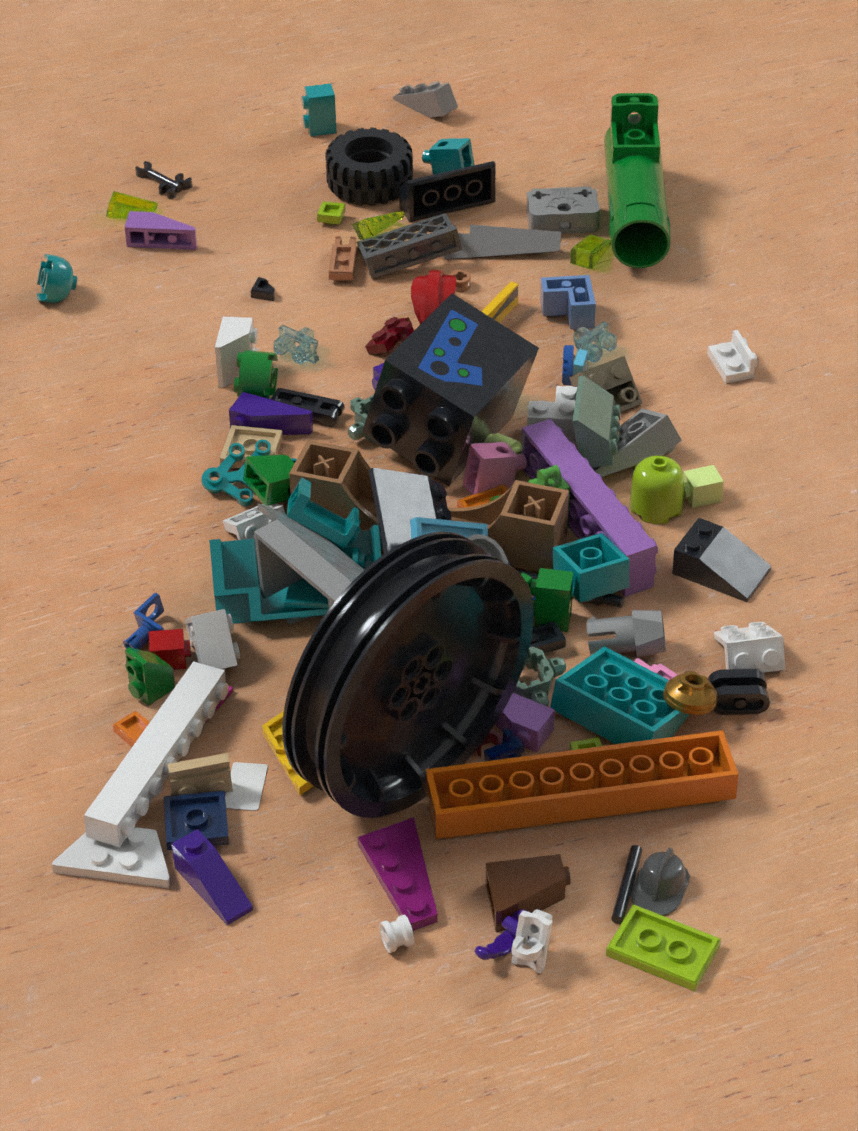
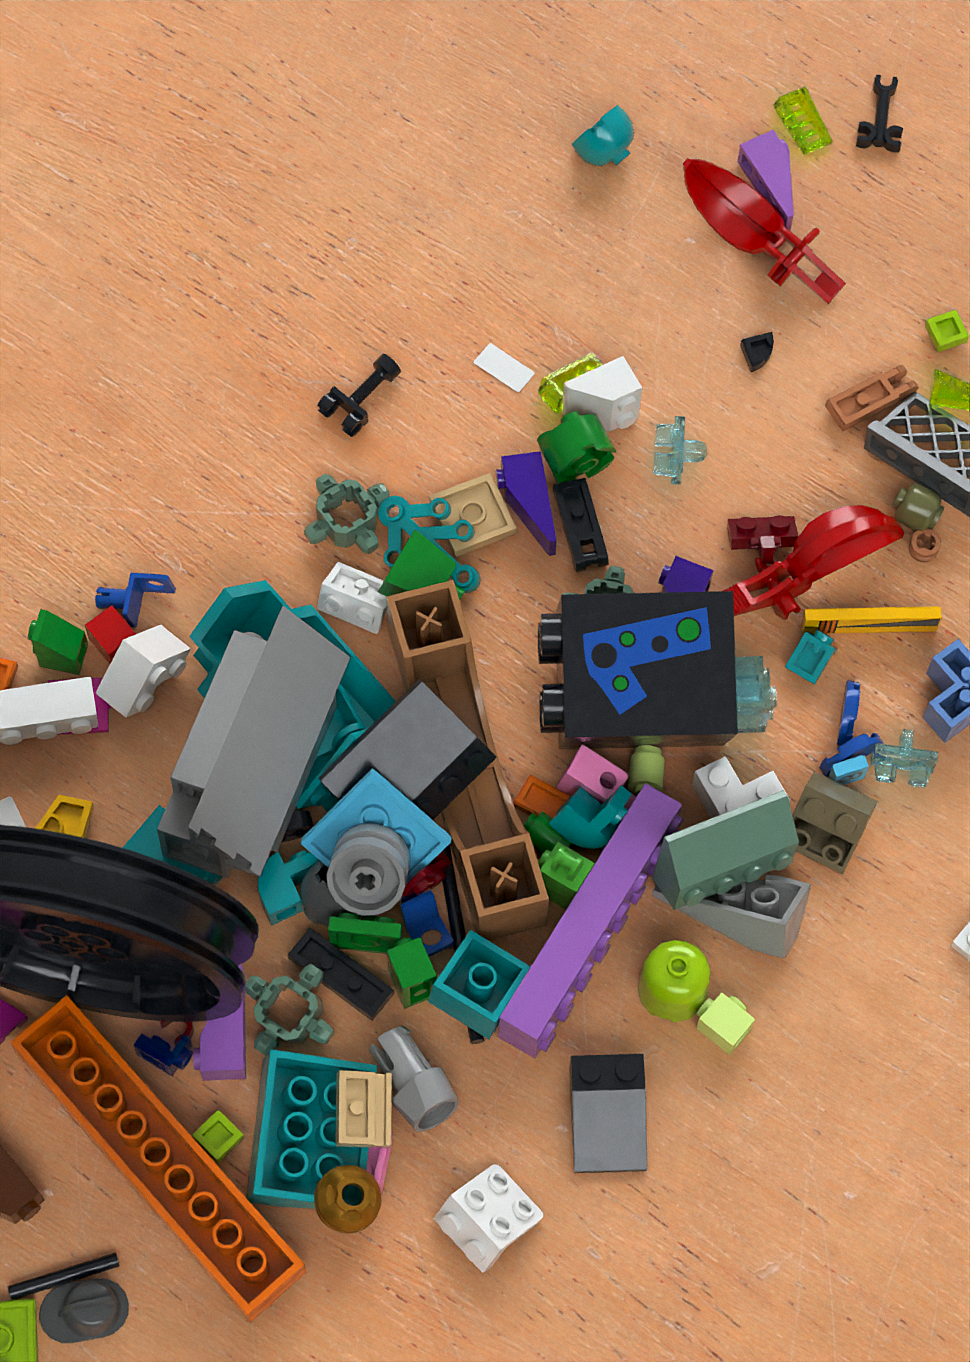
camera: 55 degrees right, 25 degrees up
(107, 443) = (385, 369): none -> black bar
(159, 397) = (504, 367): none -> white sticker
(183, 252) = (754, 225): none -> red piece
(192, 513) = (331, 497): none -> sand green piece
(203, 371) = (552, 385): none -> clear neon green slope
(320, 519) = (358, 667): teal panel -> none
(435, 261) = (918, 507): none -> olive head
(523, 468) = (587, 821): none -> teal brick
(545, 355) = (849, 711): none -> blue tile
(633, 657) = (363, 1109): none -> tan plate
(740, 691) = (428, 1247): black brick -> none

